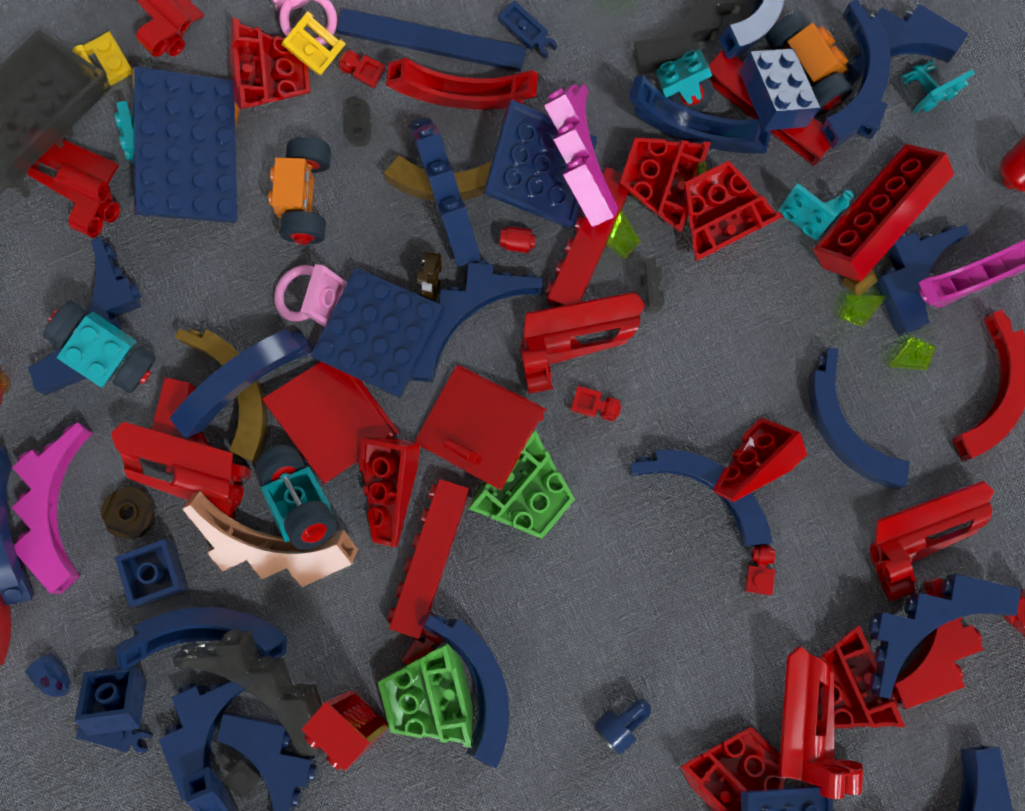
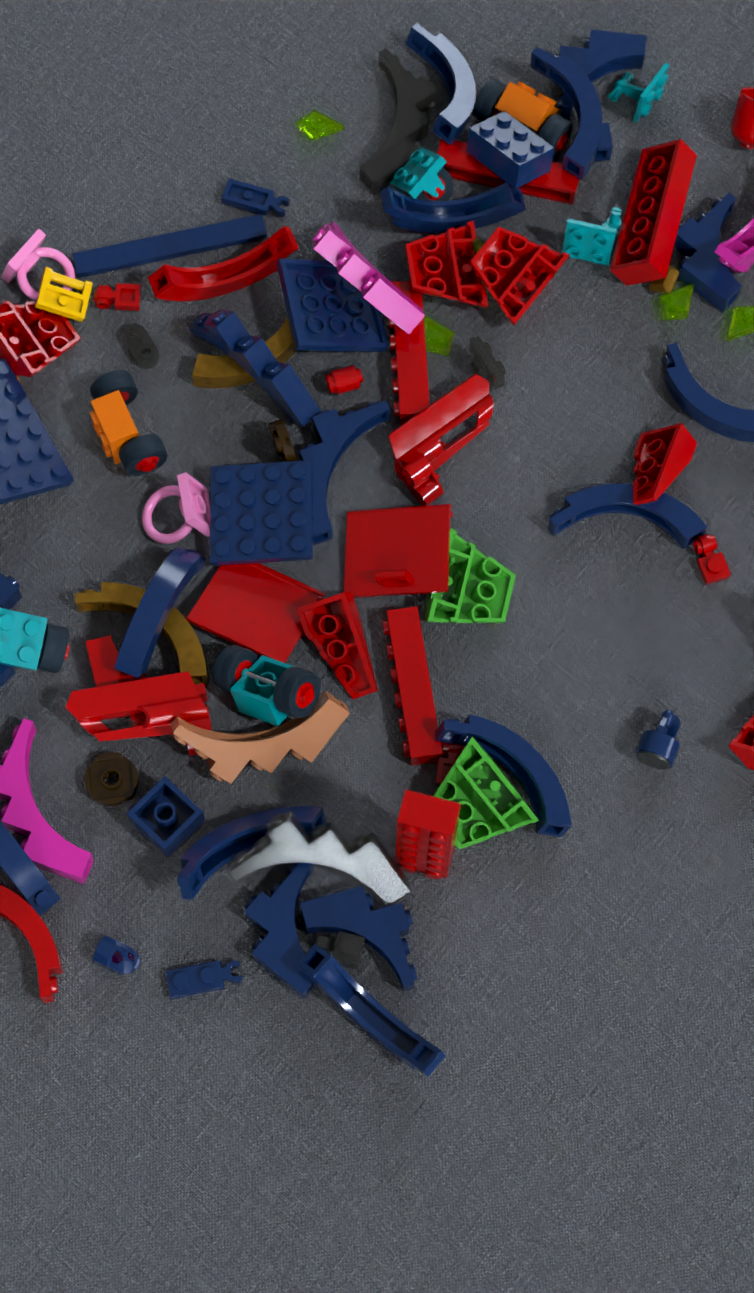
camera: 30 degrees left, 10 degrees down
(111, 700) = (190, 940): dark blue brick -> none
(588, 402) = (483, 489): red plate -> none

